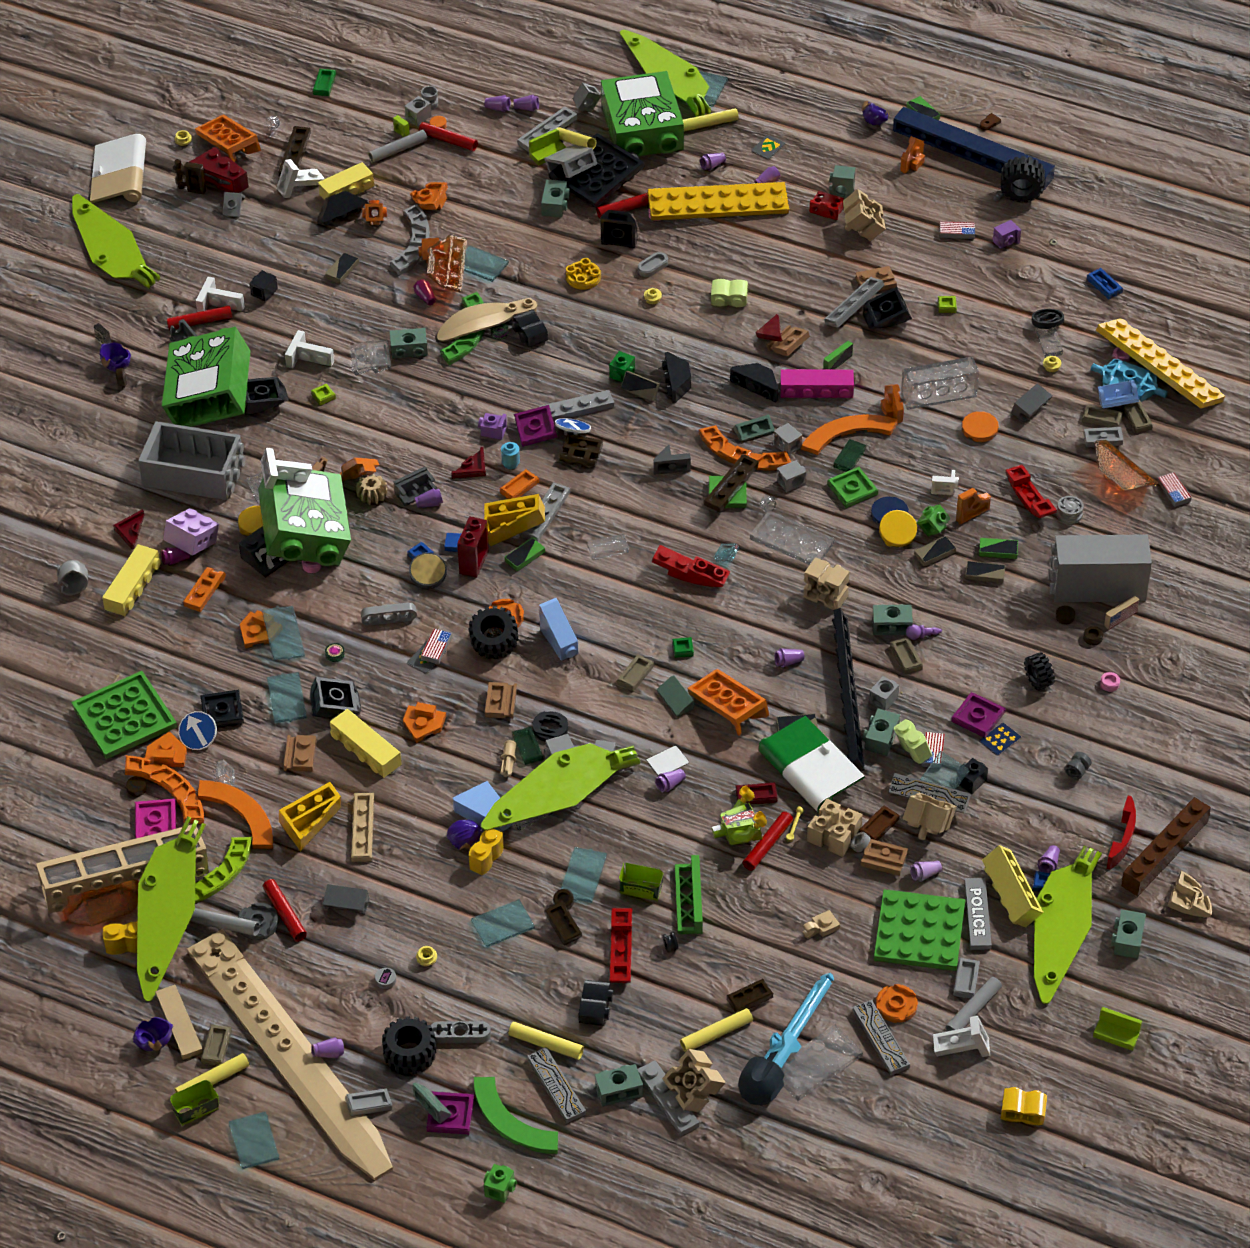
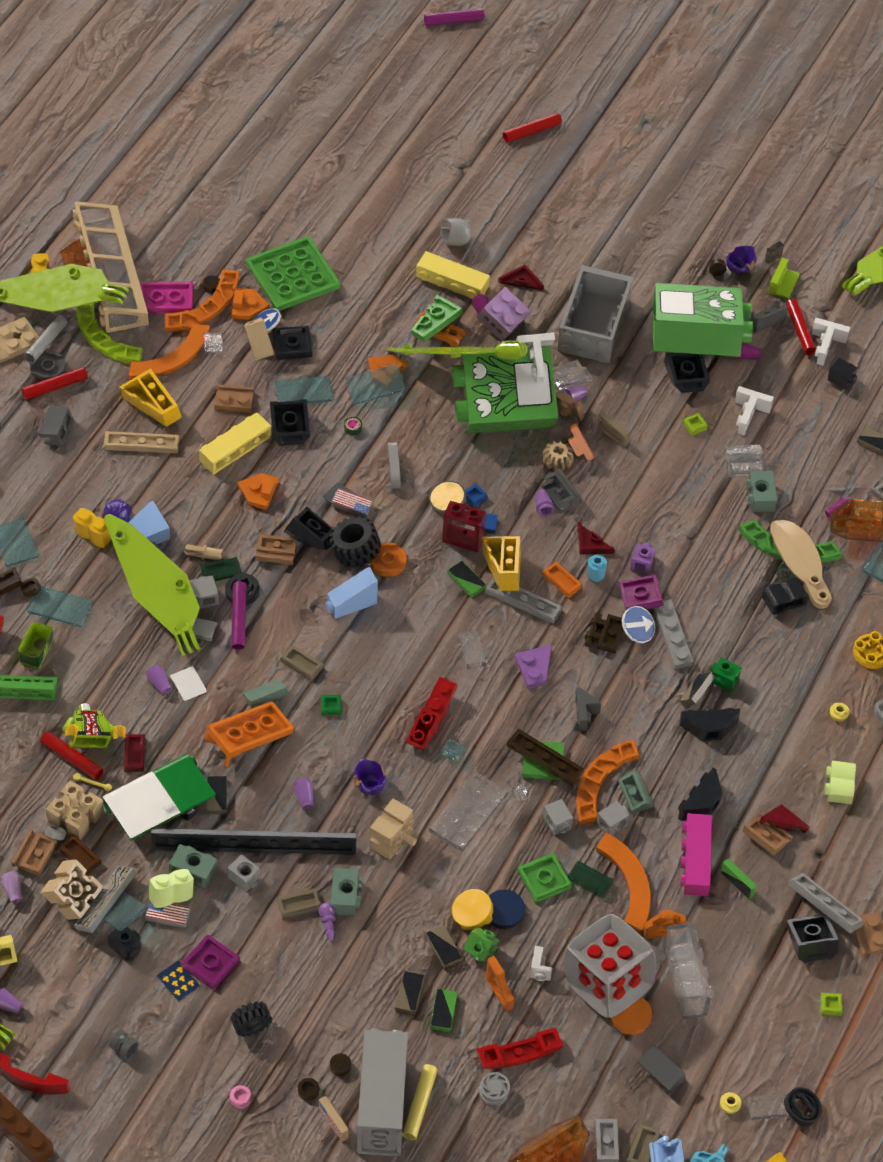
camera: 90 degrees right, 5 degrees up
(136, 331) = (783, 281): none -> lime panel
(197, 584) = (437, 317): none -> bright green wing
(228, 723) = (259, 339): none -> tan hinge
(265, 545) = (505, 350): none -> lime wing
(337, 448) = (613, 429): none -> dark tan tile
(478, 671) = (310, 530): none -> black slope
(588, 720) = (238, 616): none -> magenta piece
(622, 501) = (534, 665): none -> medium lavender wing
(768, 607) = (369, 777): none -> dark purple hair
(951, 423) = (610, 965): none -> light grey piece

